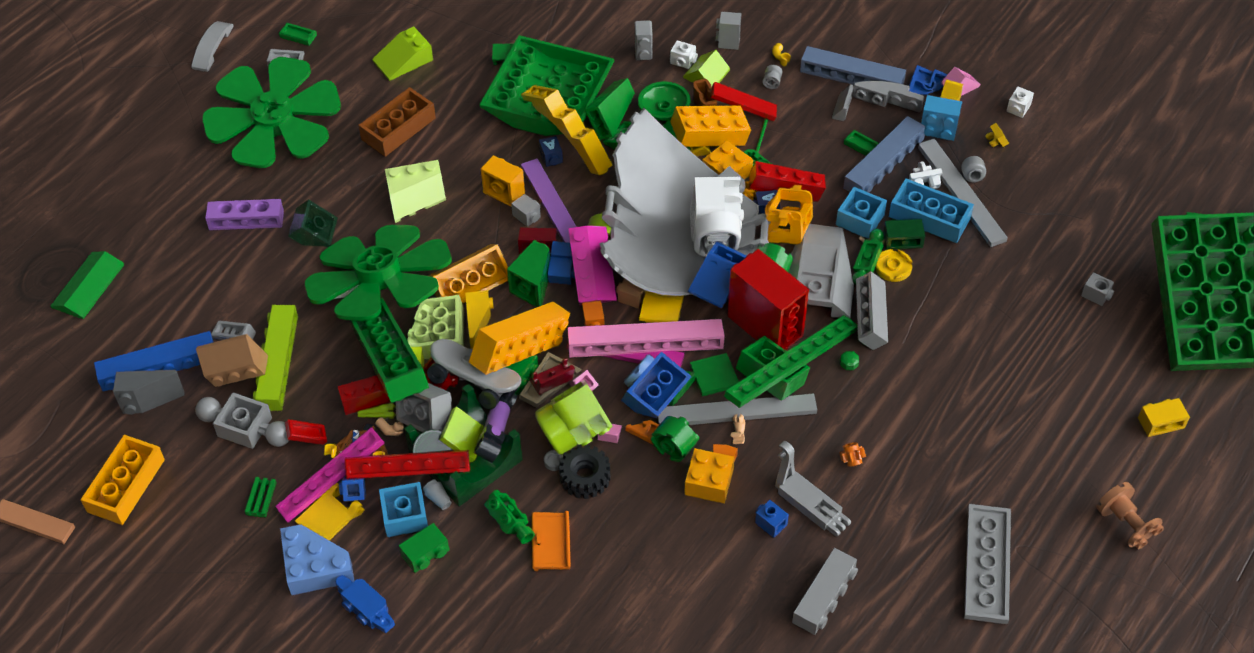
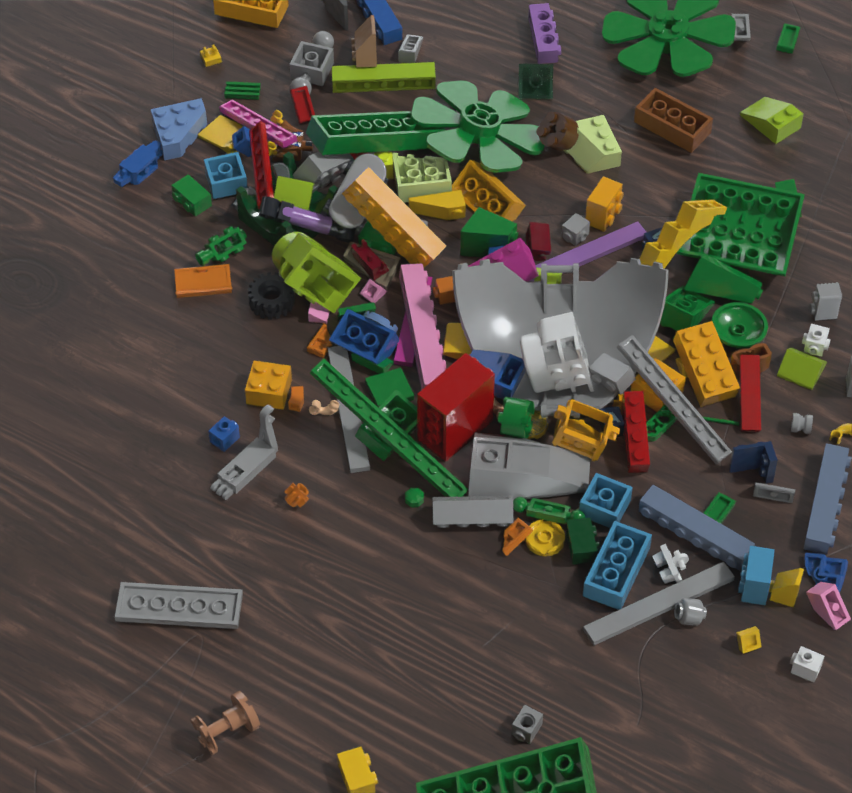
camera: 85 degrees right, 0 degrees up
(194, 529) = (210, 56): none -> yellow tile
(410, 210) = (558, 131): none -> reddish brown brick
(614, 395) = (360, 309): none -> green tile
(674, 438) = (304, 352): green brick -> none
(752, 150) = (674, 399): none -> light grey tile
(820, 102) = (755, 456): none -> dark blue bracket
(824, 591) = (145, 472): light grey brick -> none
(888, 92) = (795, 531): light grey slope -> none
(895, 285) = (515, 535): none -> orange tile

